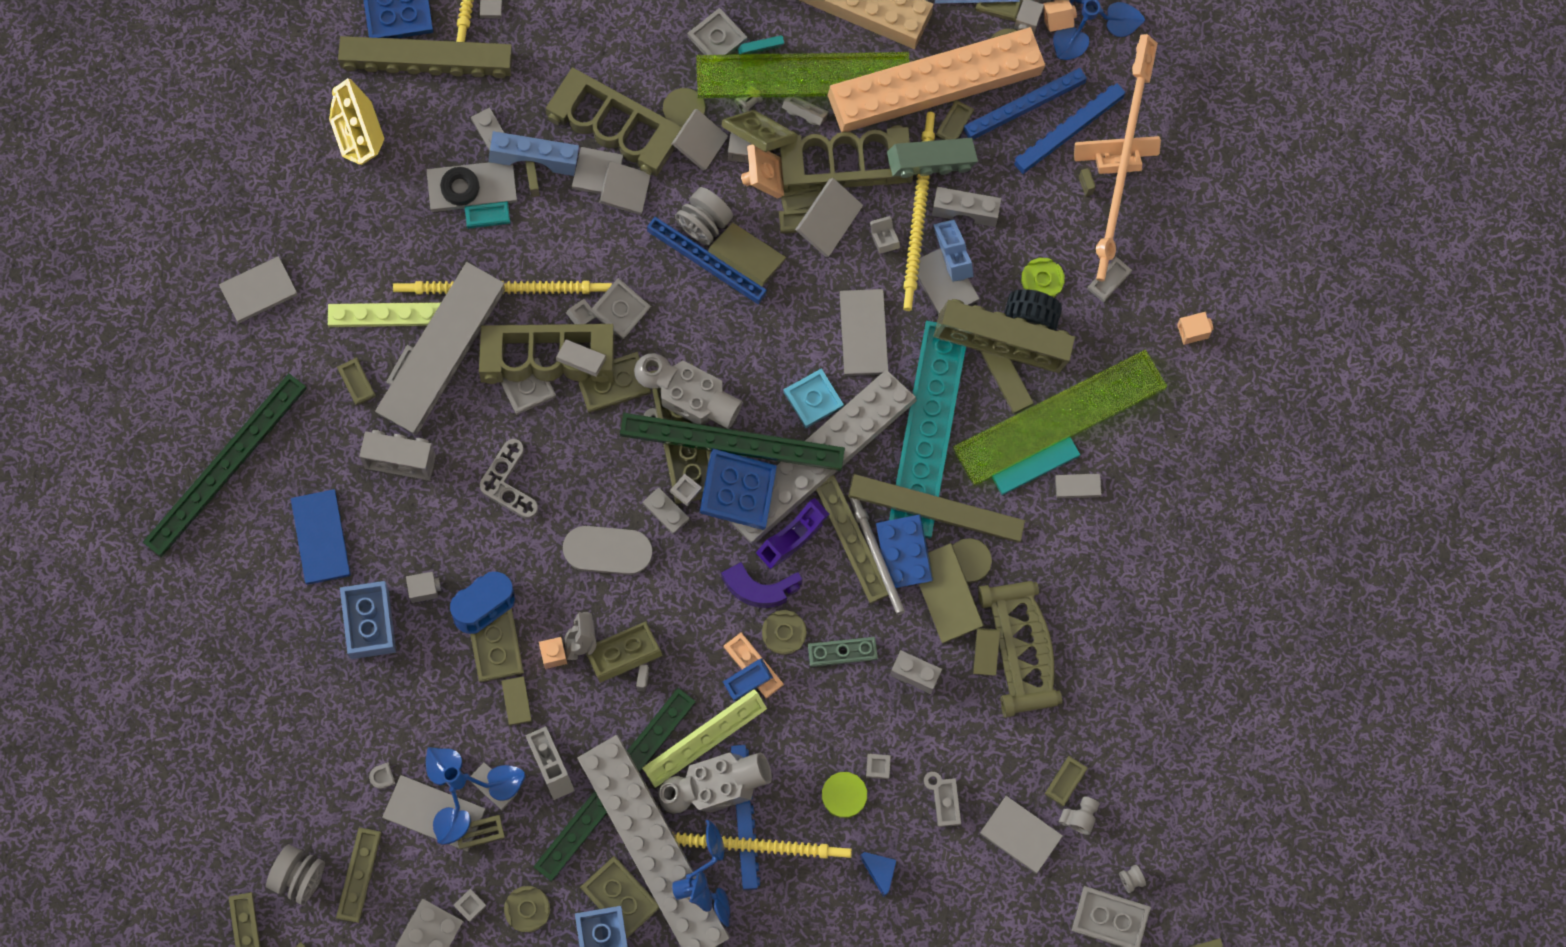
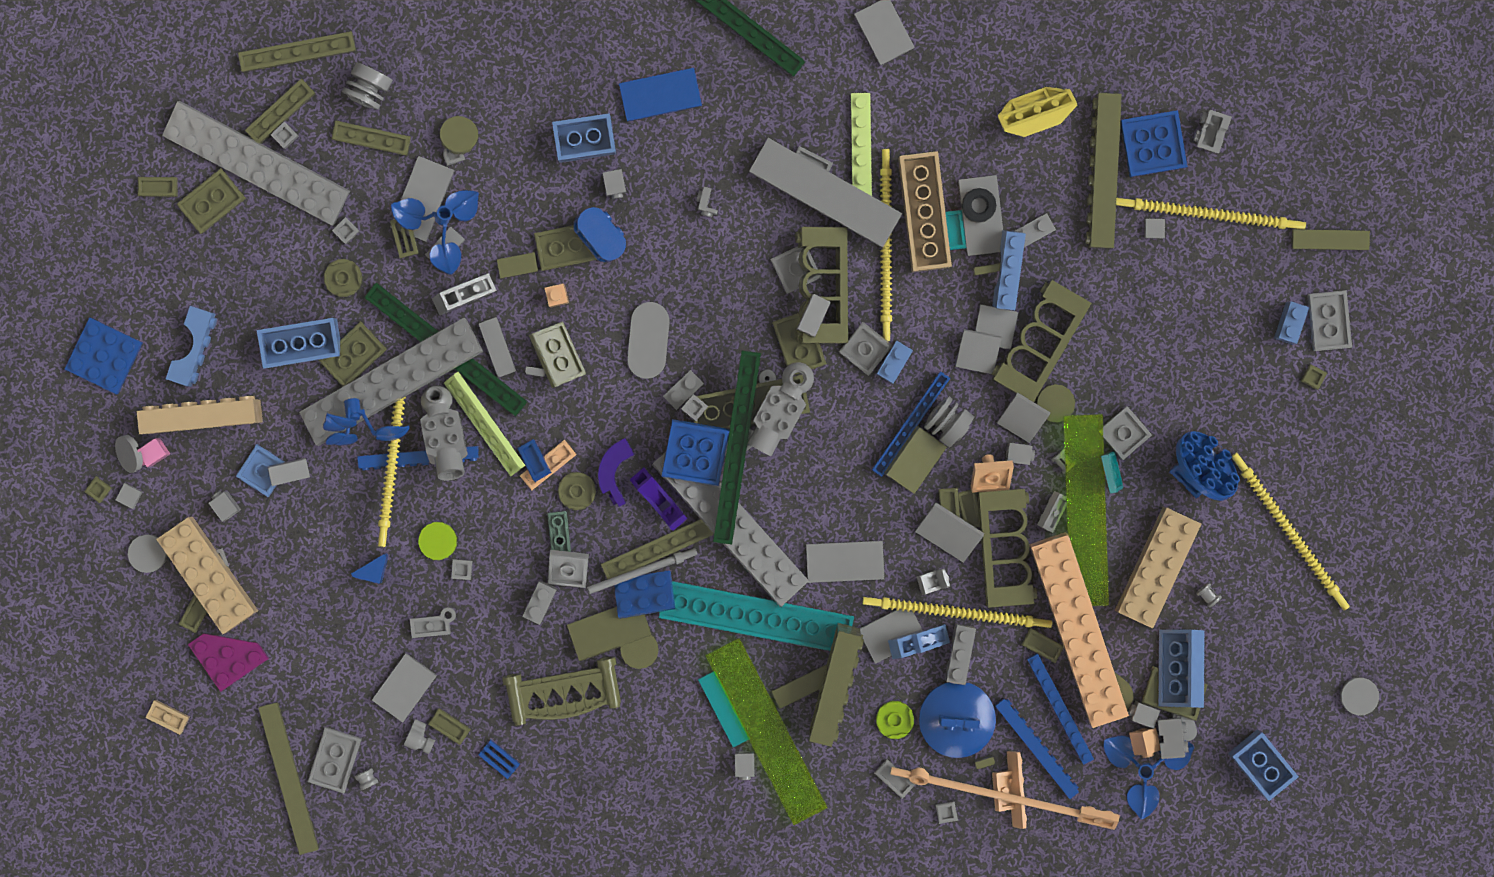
camera: 95 degrees right, 15 degrees up
(356, 381) = (799, 120): olive tile -> none
(359, 768) = (458, 135): none -> olive tile
(397, 455) = (729, 158): light grey brick -> none
(443, 486) = (703, 198): none -> light grey bracket
(473, 240) = (924, 211): none -> tan brick
(502, 488) = (704, 248): light grey beam -> none
(580, 313) = (860, 314): light grey plate -> none
(581, 637) = (569, 318): light grey cylinder -> none
(613, 724) = (497, 347): none -> light grey tile
(636, 276) = (894, 362): none -> medium blue brick
(759, 130) = (1028, 471): olive tile -> none
(813, 398) = (783, 517): medium azure plate -> none
(875, 639) = (568, 568): none -> light grey tile
(932, 157) = (1004, 625): sand green brick -> none
(936, 508) = (682, 622): olive tile -> none
(986, 651) = (558, 662): olive tile -> none
(1034, 308) = (858, 710): black wheel -> none
(1040, 211) = (957, 719): none -> blue bracket
(1078, 486) = (705, 744): light grey tile -> none
(1099, 441) = (744, 764): none -> light grey brick
(1114, 707) = (500, 760): none -> blue tile
(1145, 224) = (946, 812): none -> light grey tile
(1195, 328) = (847, 852): light nougat brick -> none

